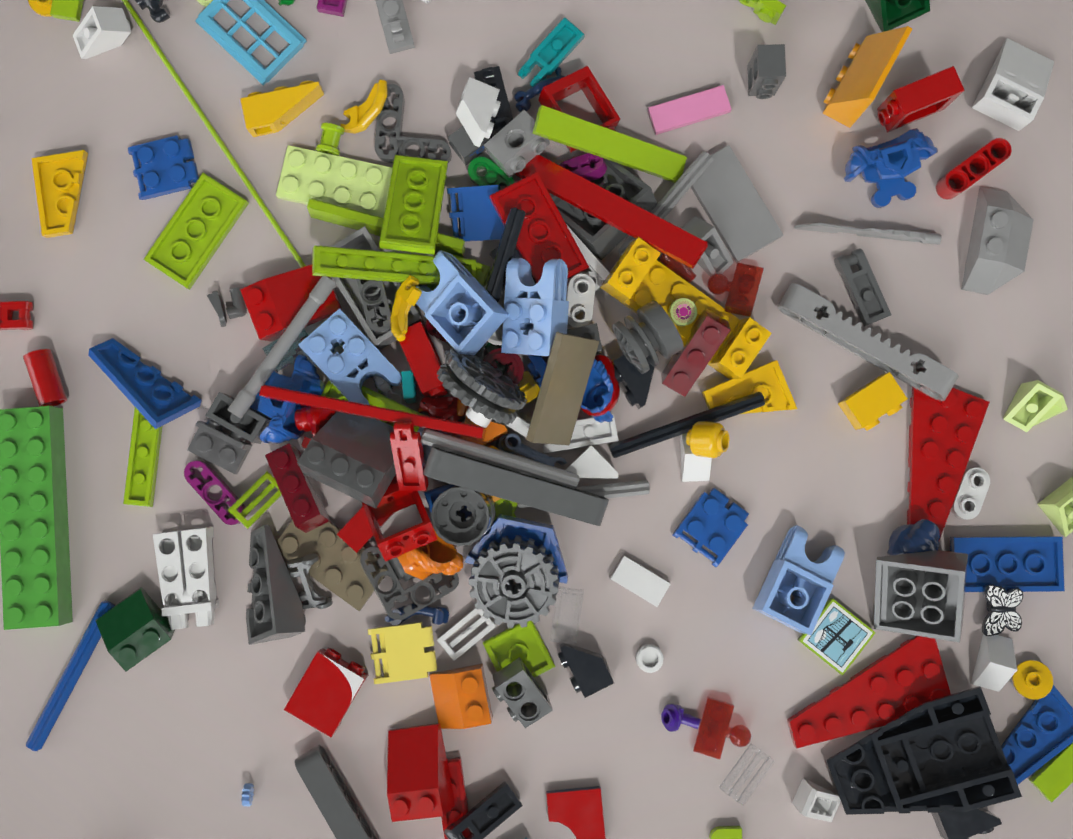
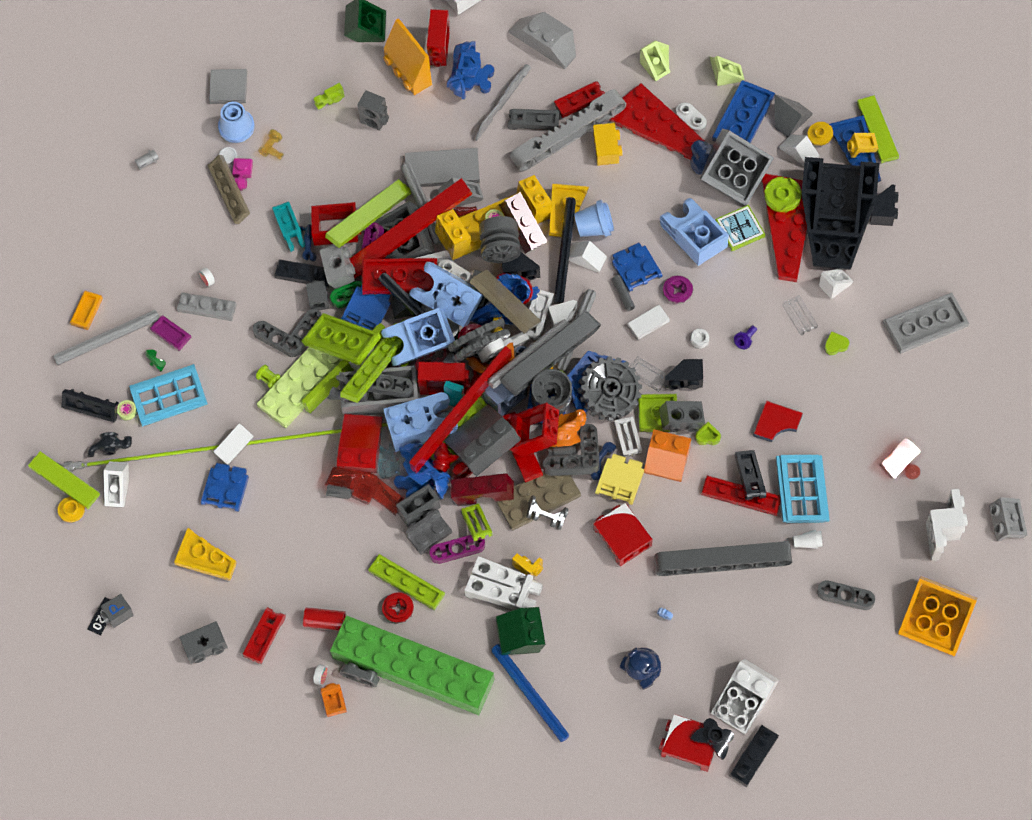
camera: 60 degrees left, 20 degrees down
(93, 454) = (391, 602): none -> red gear
(143, 385) = (360, 558): blue wing -> none
(164, 799) = (642, 665): none -> dark blue helmet
(196, 231) = (279, 486): lime tile -> none
(218, 146) = (233, 444): none -> white tile
(226, 589) = (525, 566): none -> yellow bracket
(237, 339) = (365, 487): none -> clear red plate
(248, 394) = (408, 486): light grey piece -> none
(275, 604) = (546, 540): dark grey wedge -> none
(276, 109) = (229, 404): yellow slope -> none
(330, 237) = (334, 392): none -> dark grey piece
(365, 114) = (264, 346): yellow piece -> none
(404, 298) = (403, 368): yellow piece -> none
(408, 457) = (500, 401): hinge -> none
(418, 774) = (701, 499): red slope -> none
(476, 108) = (304, 276): white slope -> none
(518, 735) = (708, 435): none -> lime tile
(666, 528) = (623, 292): none -> dark grey piece
(689, 110) = (369, 165): bright pink tile -> none
(708, 439) = (579, 238): yellow head -> none
(712, 608) = (676, 282): none -> magenta gear
(715, 729) = (762, 319): clear red plate -> none
(741, 289) = (497, 183): clear red plate -> none
(750, 443) = (594, 220): none -> light blue piece
(912, 674) = (782, 194): none -> lime tile
(923, 332) = (578, 99): none -> red plate
(981, 160) = (495, 22): red beam -> none
(1002, 609) = (768, 130): black animal -> none
(1042, 625) = (789, 115): none -> dark grey slope
(1042, 750) = (862, 143): none -> yellow bracket

